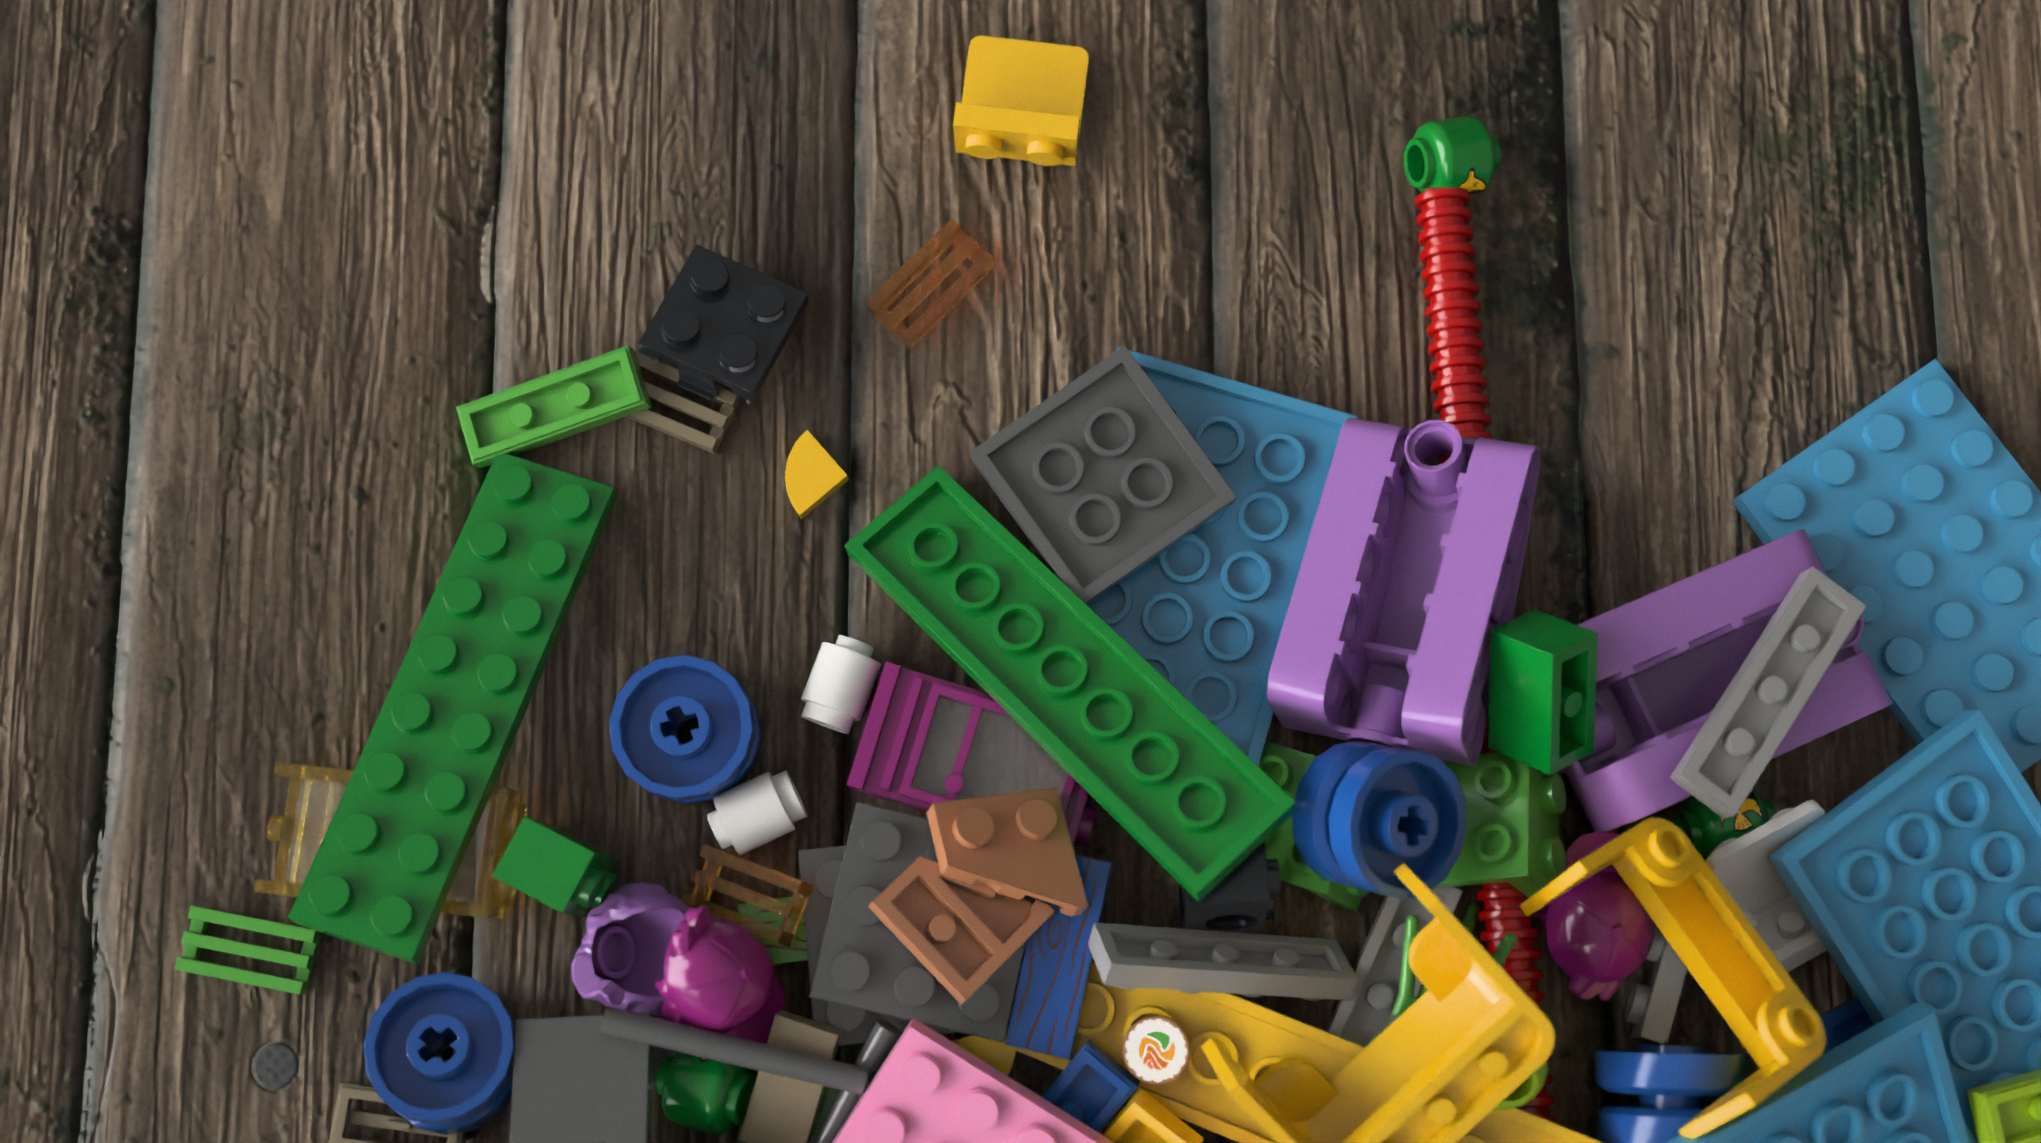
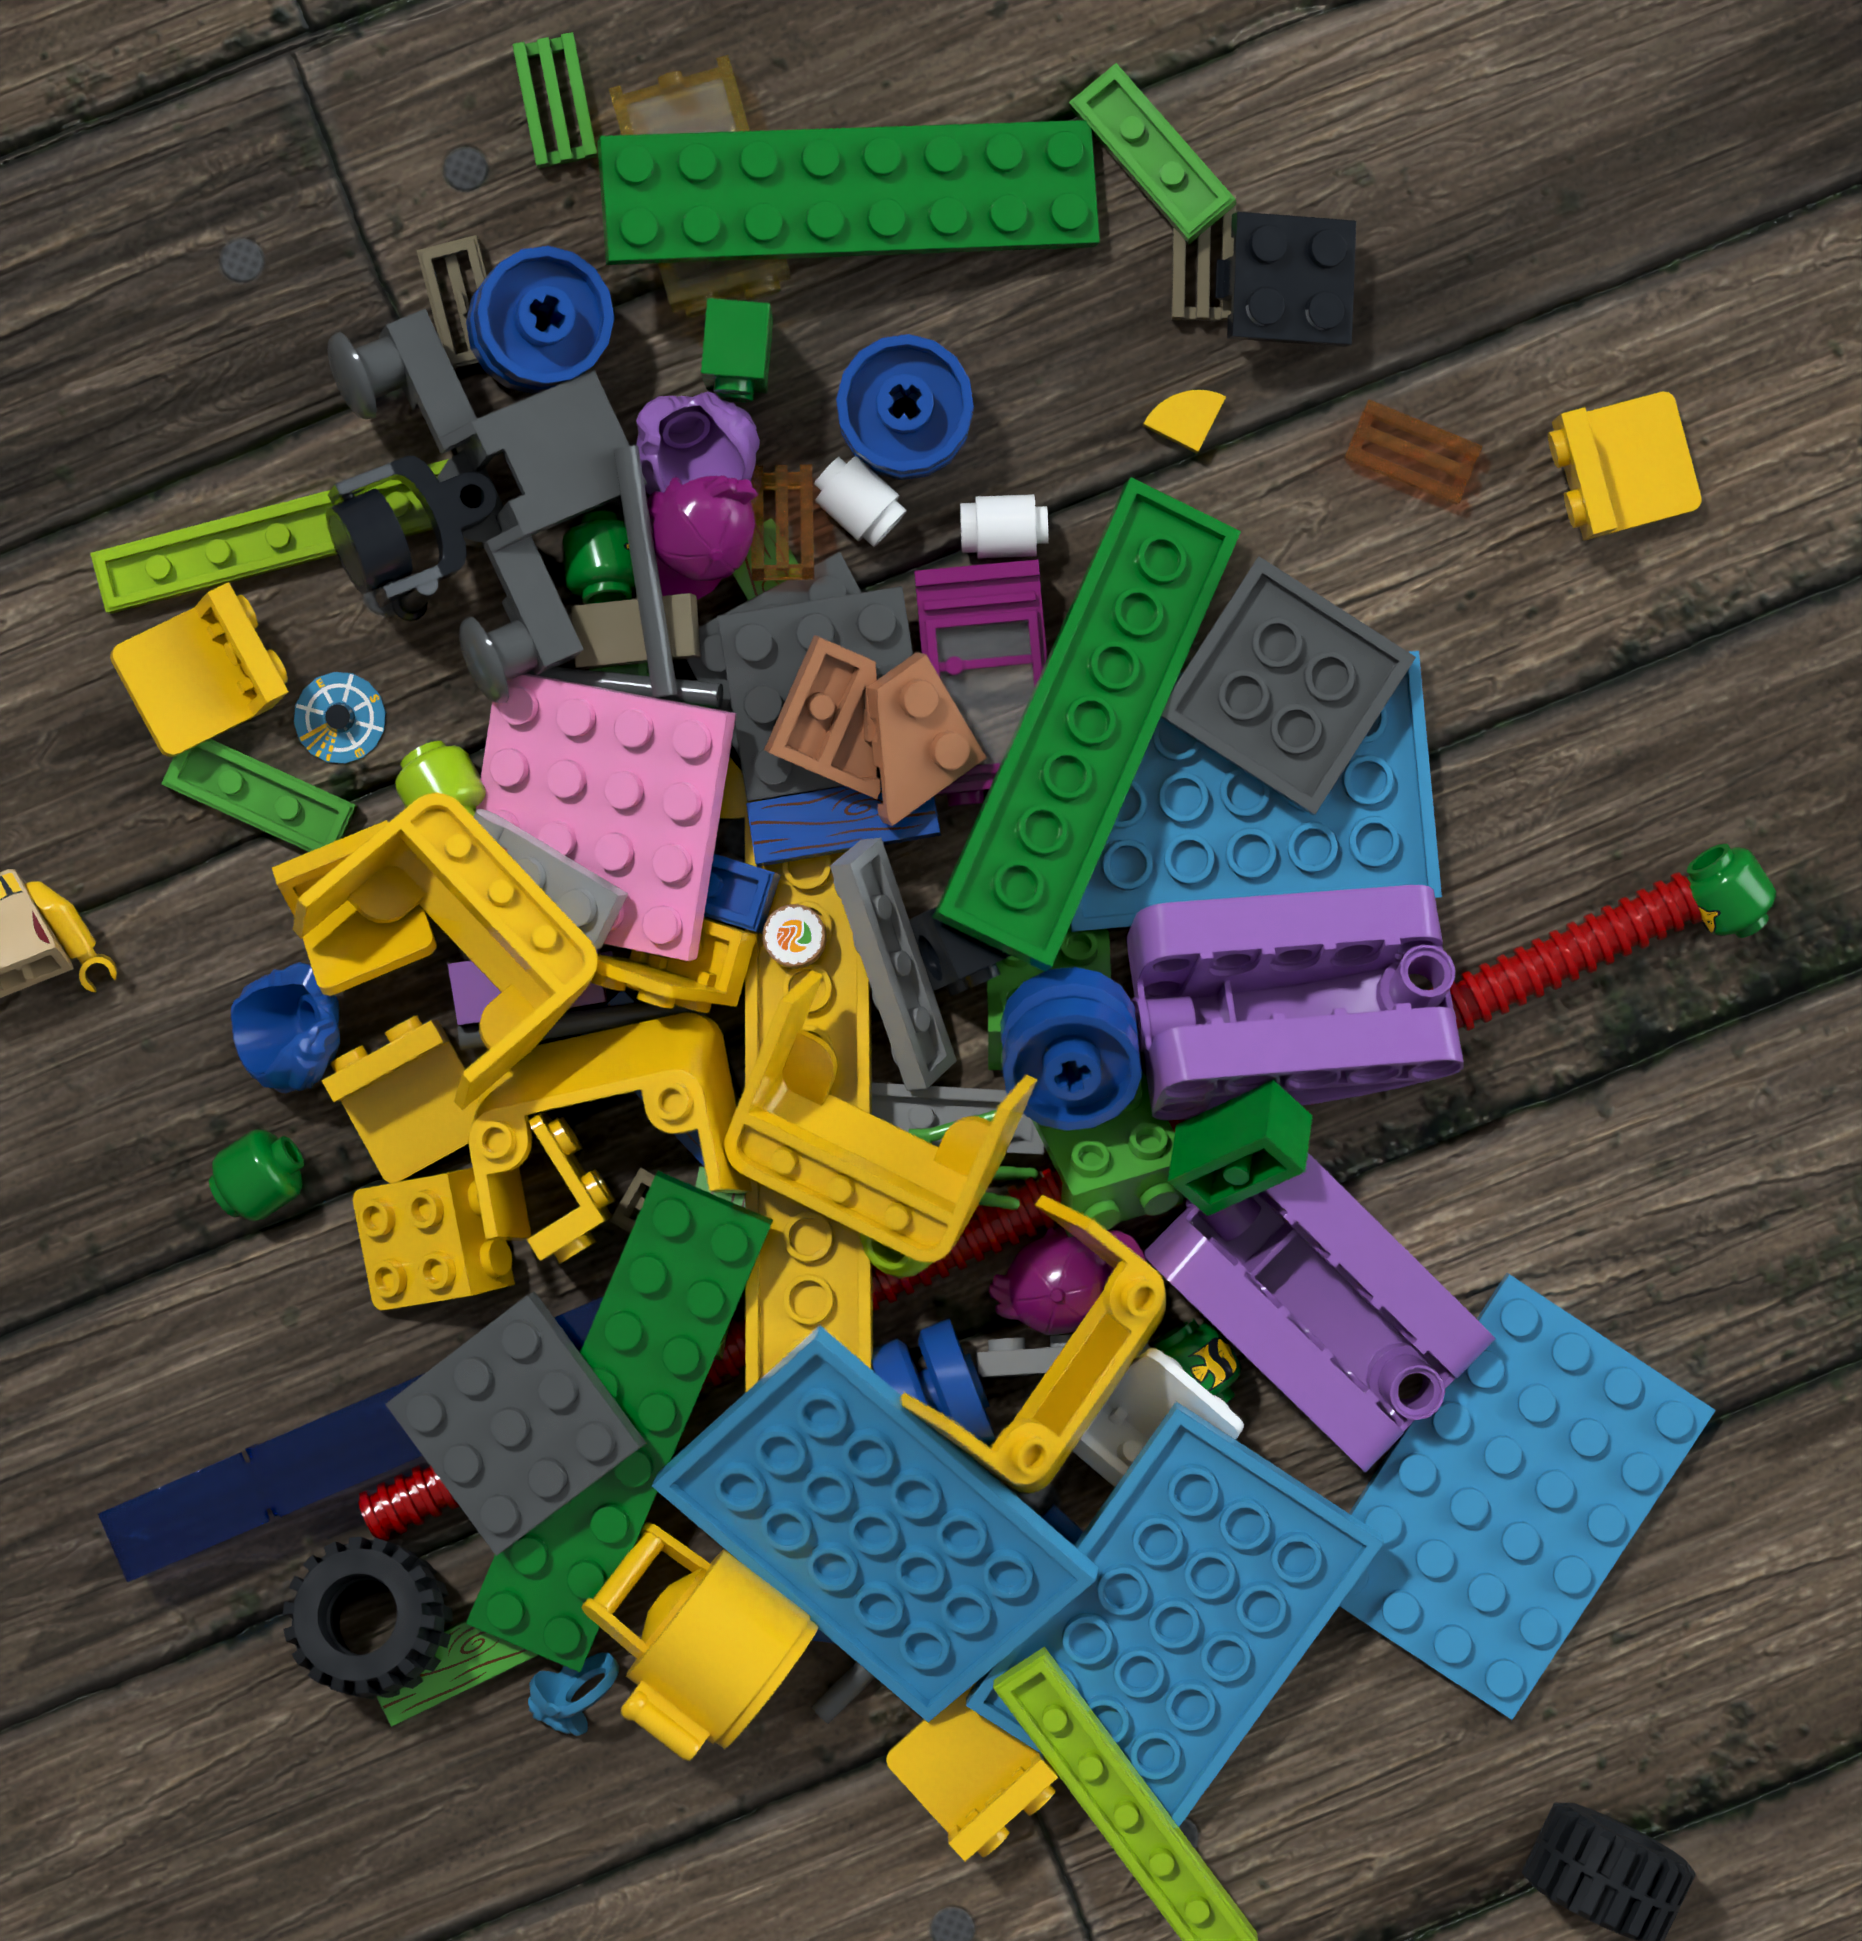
camera: 70 degrees right, 10 degrees up
(1768, 693) = (1320, 1346): light grey plate -> none

